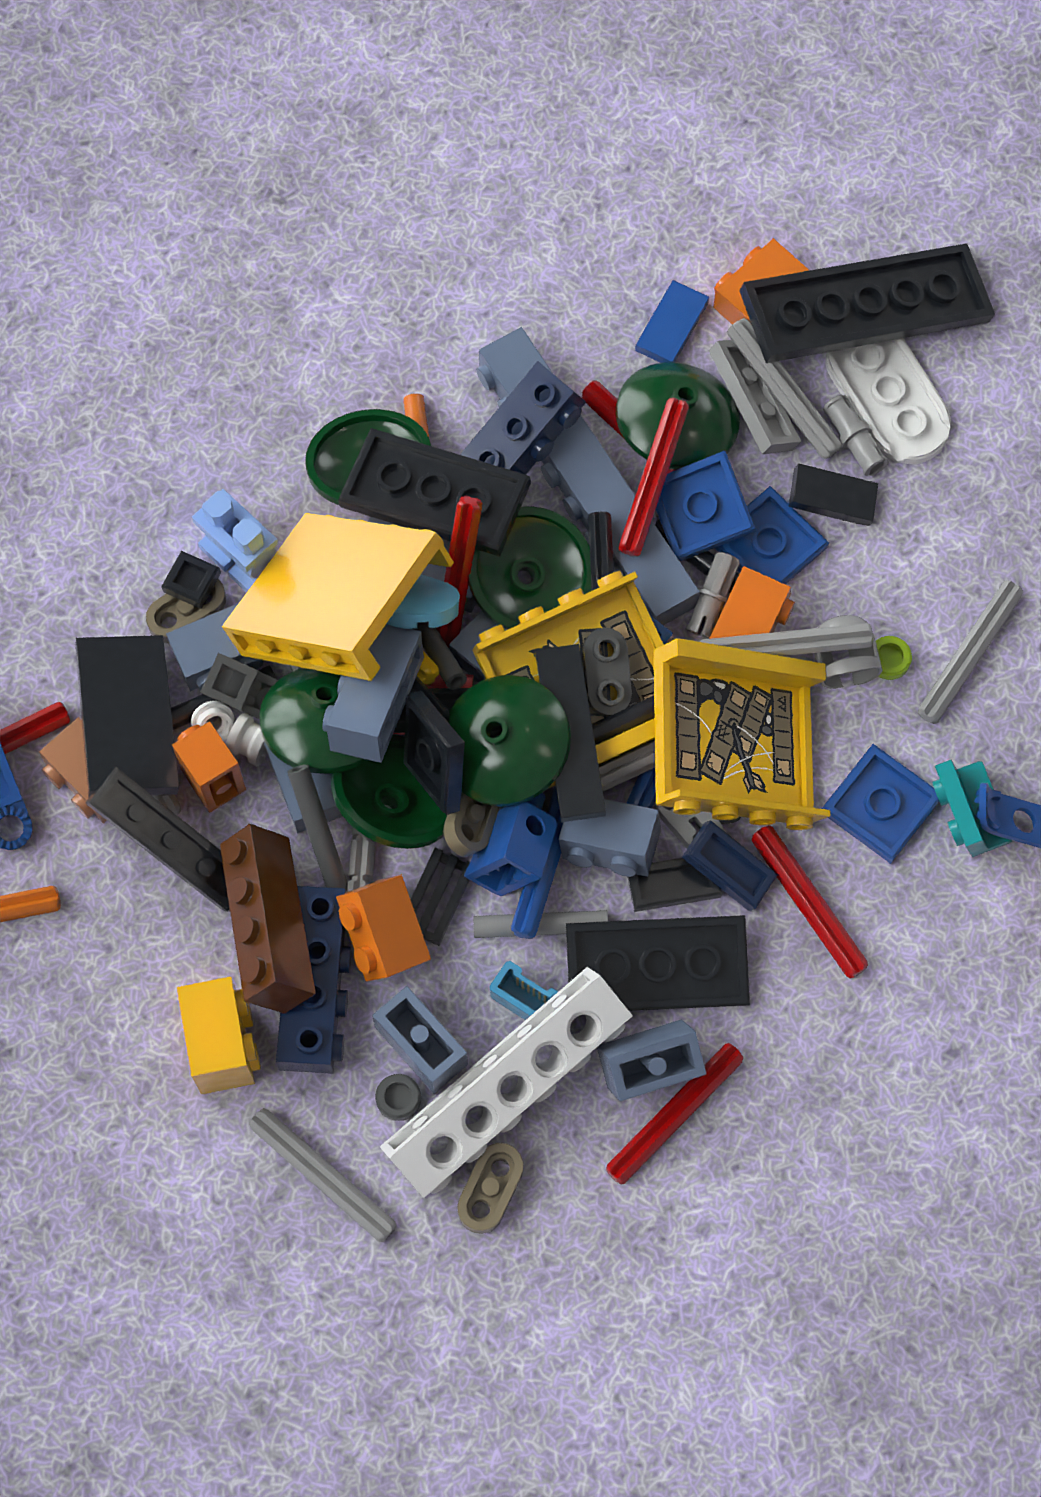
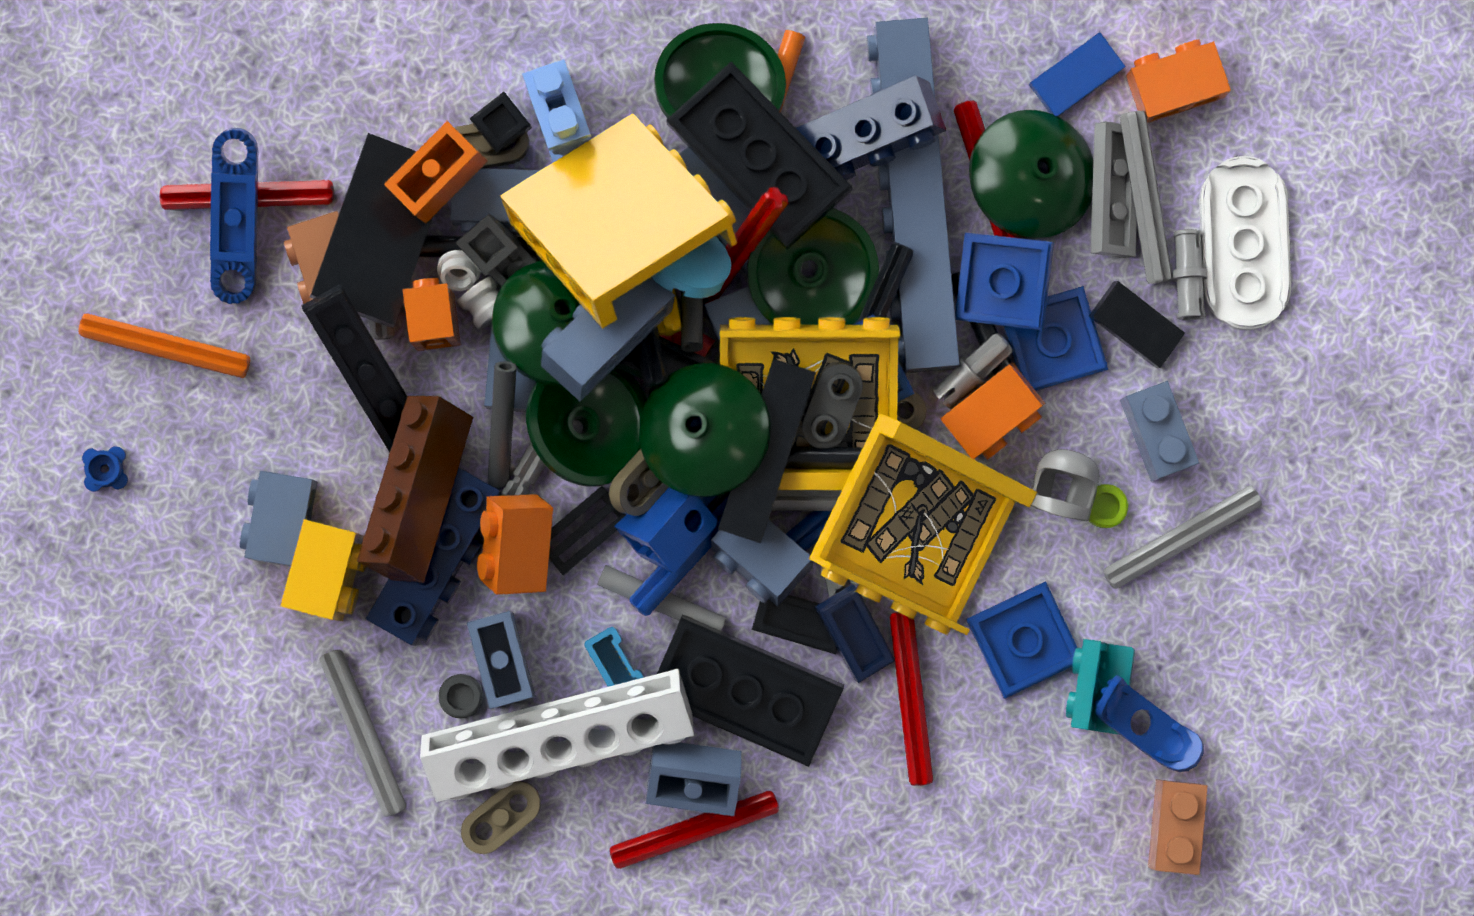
camera: 20 degrees right, 15 degrees up
(151, 1013) = (277, 516): none -> sand blue brick
(154, 634) = (436, 172): none -> orange brick
(433, 752) = (633, 411): black tile -> none
(653, 477) = (972, 235): red axle -> none
(802, 641) = (1009, 459): light grey axle -> none
(866, 302) = (1268, 151): black plate -> none
(901, 569) = (1159, 431): none -> sand blue brick

